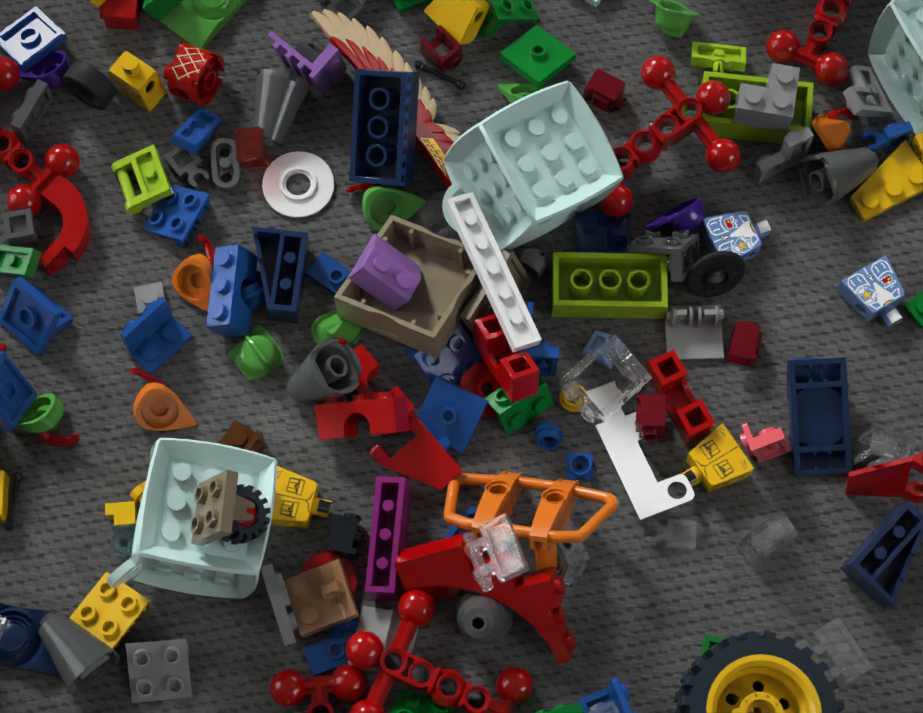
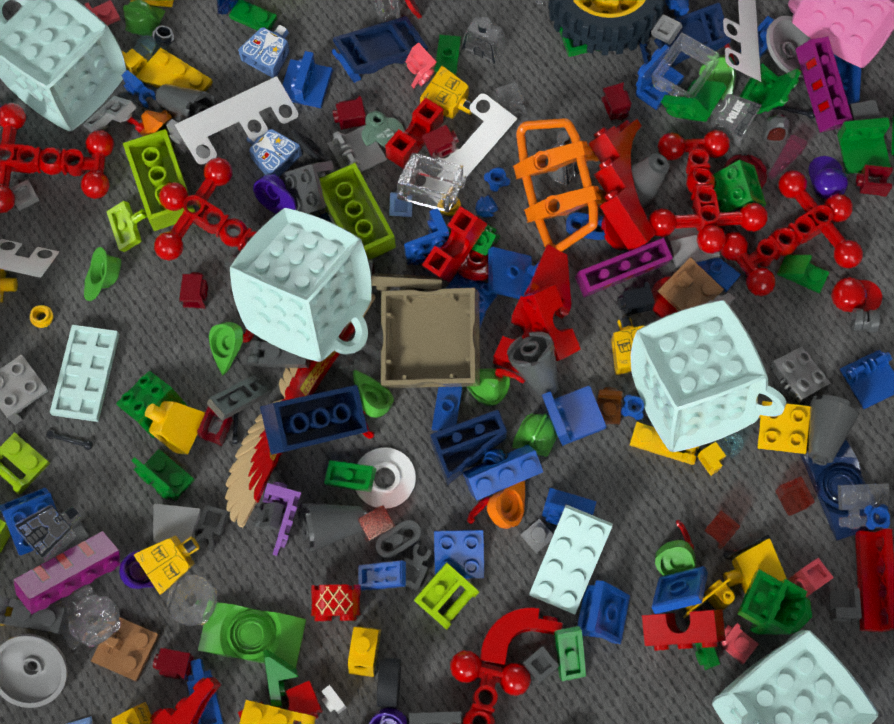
camera: 115 degrees left, 0 degrees up
(33, 578) = (794, 496): none -> clear red panel
(42, 477) = (722, 528): none -> clear red panel
(100, 303) = (570, 559): none -> light aqua plate
(107, 36) = (332, 700): none -> white plate
(159, 407) = (618, 478): orange piece -> none
(227, 511) = (704, 330): dark tan plate -> none
(253, 393) = (574, 414): none -> blue bracket
(315, 148) = (350, 476): none -> green plate
(386, 273) = (433, 356): medium lavender slope -> none
(456, 78) = (238, 397): none -> dark grey plate
(493, 272) = (397, 277): white plate -> none
(503, 549) = (604, 164): clear plate -> none
(537, 56) = (186, 352): green plate -> none
(608, 655) = (616, 102): none -> dark red window
(703, 370) = (381, 131): none -> sand green plate
(770, 105) = (154, 153): light grey brick -> none
(773, 493) = (448, 53): none -> green plate
(800, 215) = (236, 109): none -> white piece
(812, 317) = (306, 81): none -> blue bracket

